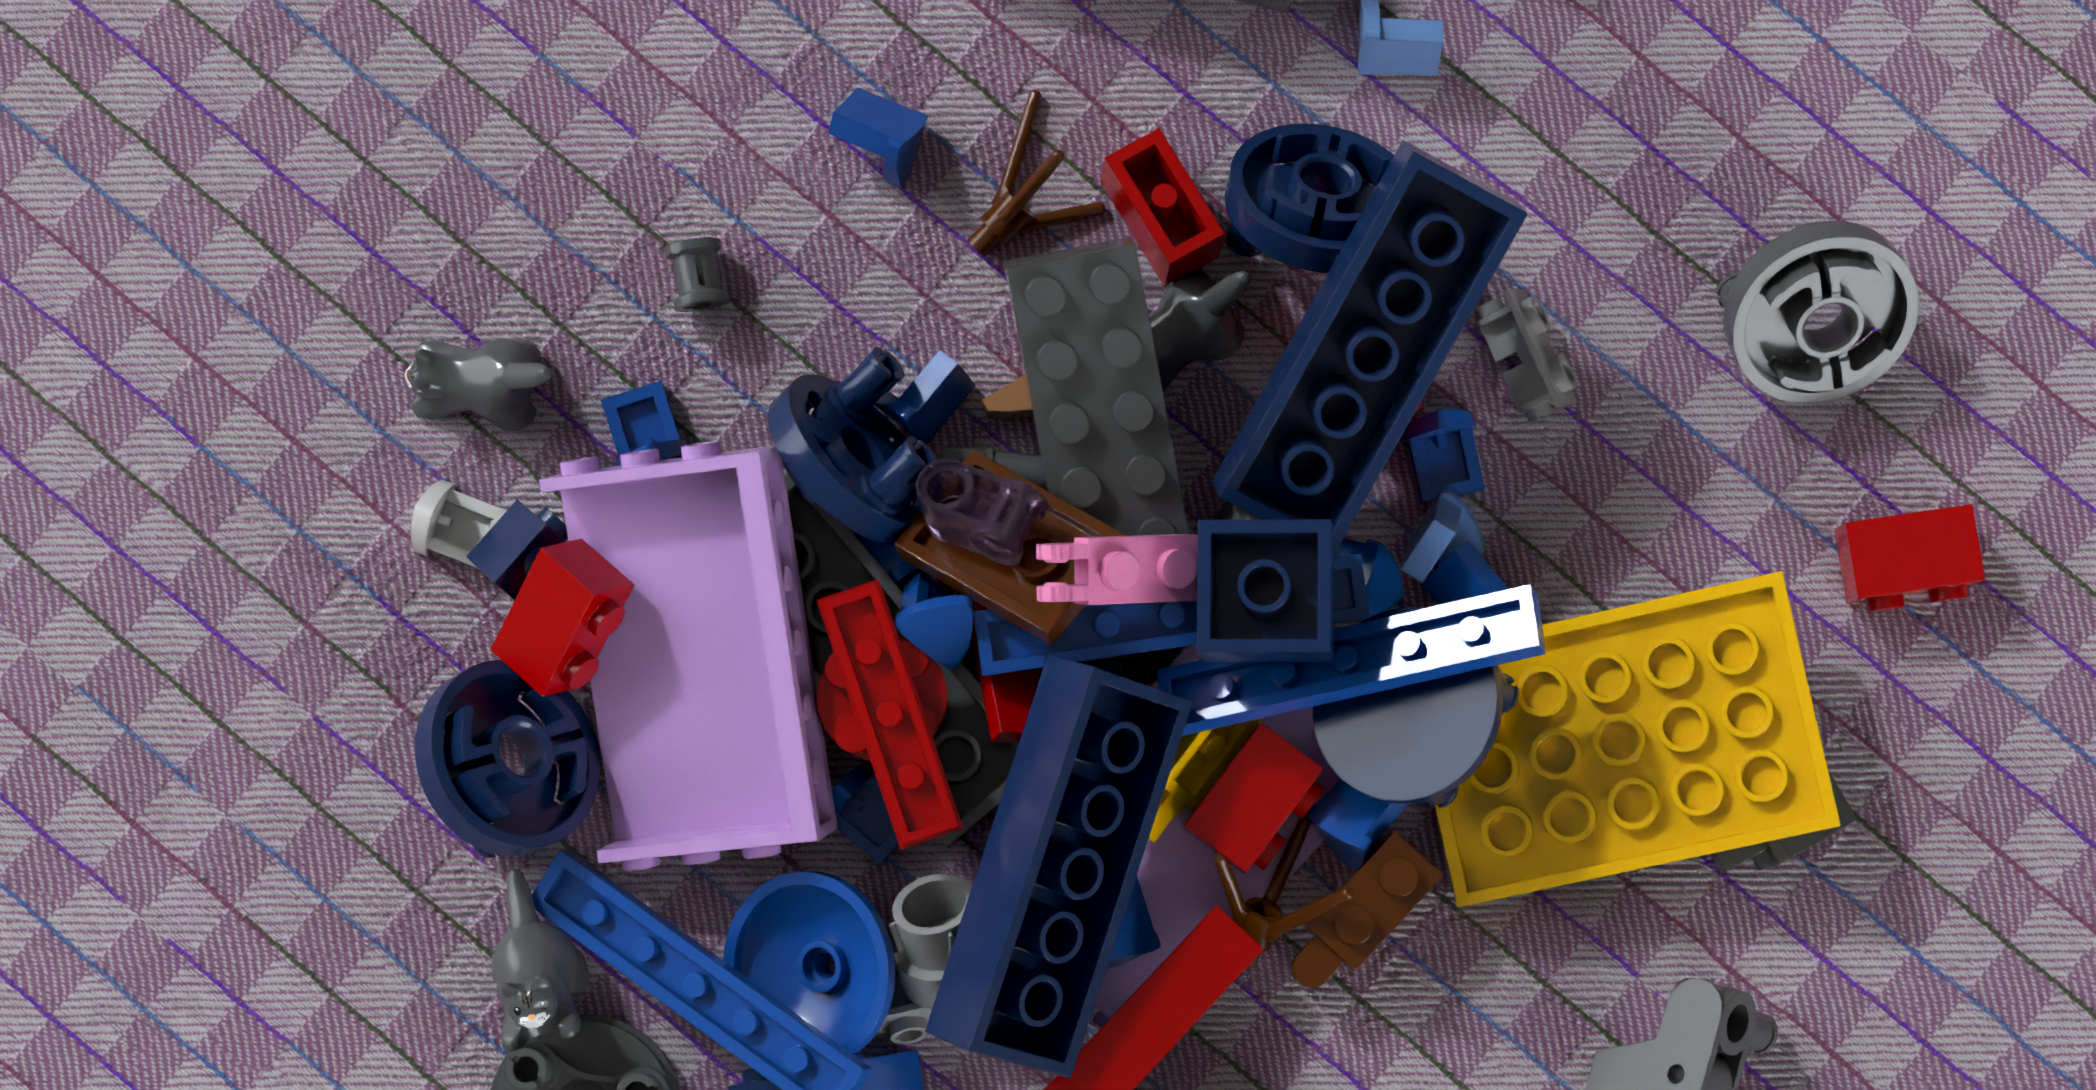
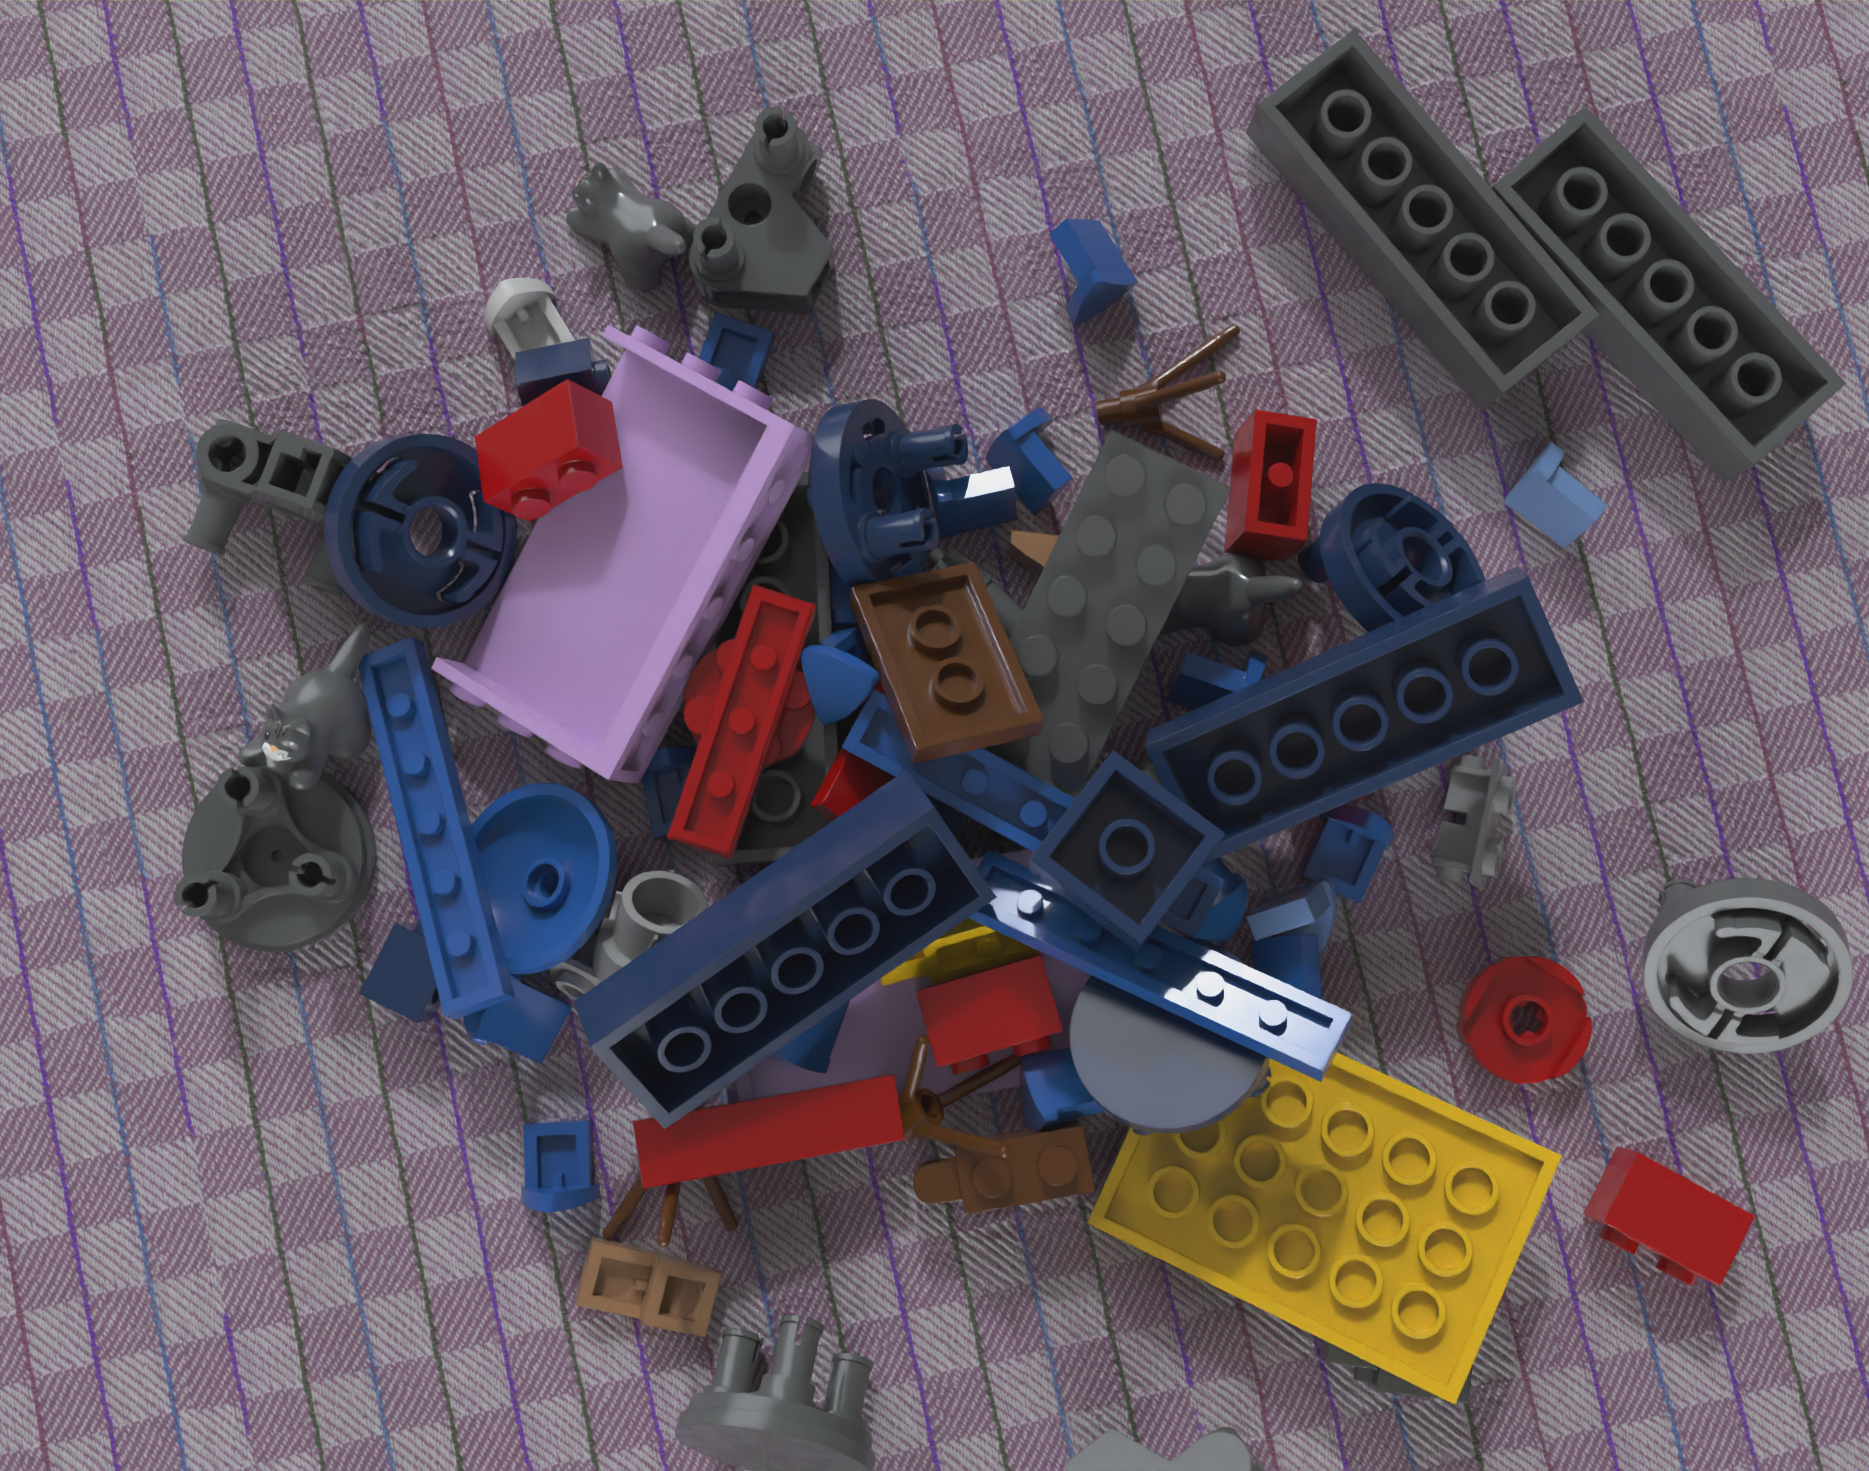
camera: 30 degrees right, 0 degrees up
(351, 806) = (277, 473): none -> dark grey piece
(621, 310) = (784, 257): none -> dark grey piece
(696, 294) = (881, 257): dark grey bush -> none
(959, 334) = (1033, 467): none -> blue tile
(990, 511) = (945, 614): clear purple piece -> none
(1124, 569) = (1020, 745): bright pink hinge -> none
(1227, 405) = (1205, 680): none -> blue tile
(1707, 455) = (1560, 1009): none -> red plate

